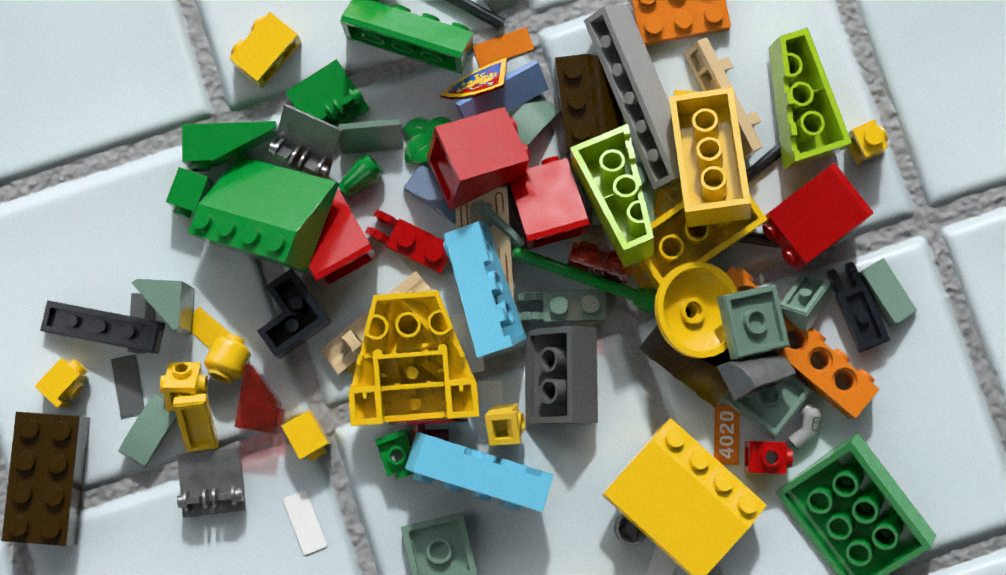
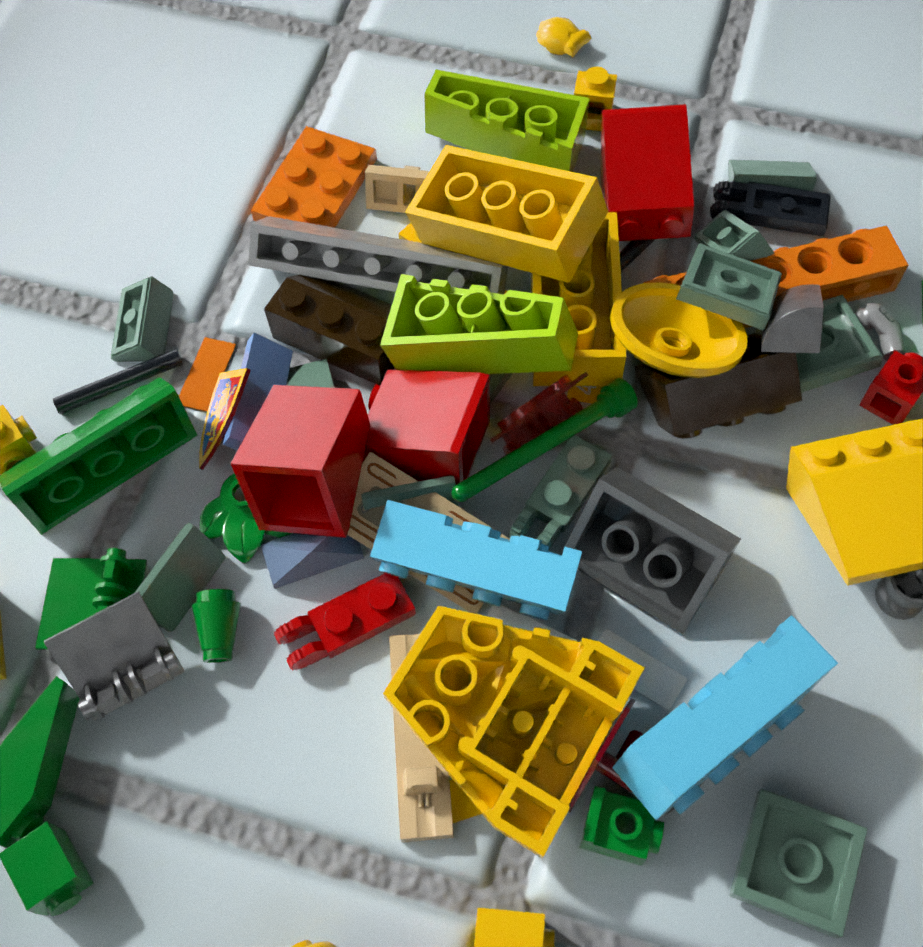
camera: 50 degrees left, 20 degrees down
(265, 212) = (161, 776): green slope -> none
(300, 316) = (335, 827): black brick -> none
(340, 246) = (263, 712): red slope -> none
(504, 424) = (675, 648): yellow brick -> none
(726, 435) = (833, 413): orange sticker -> none
(916, 80) = (562, 36): none -> yellow animal

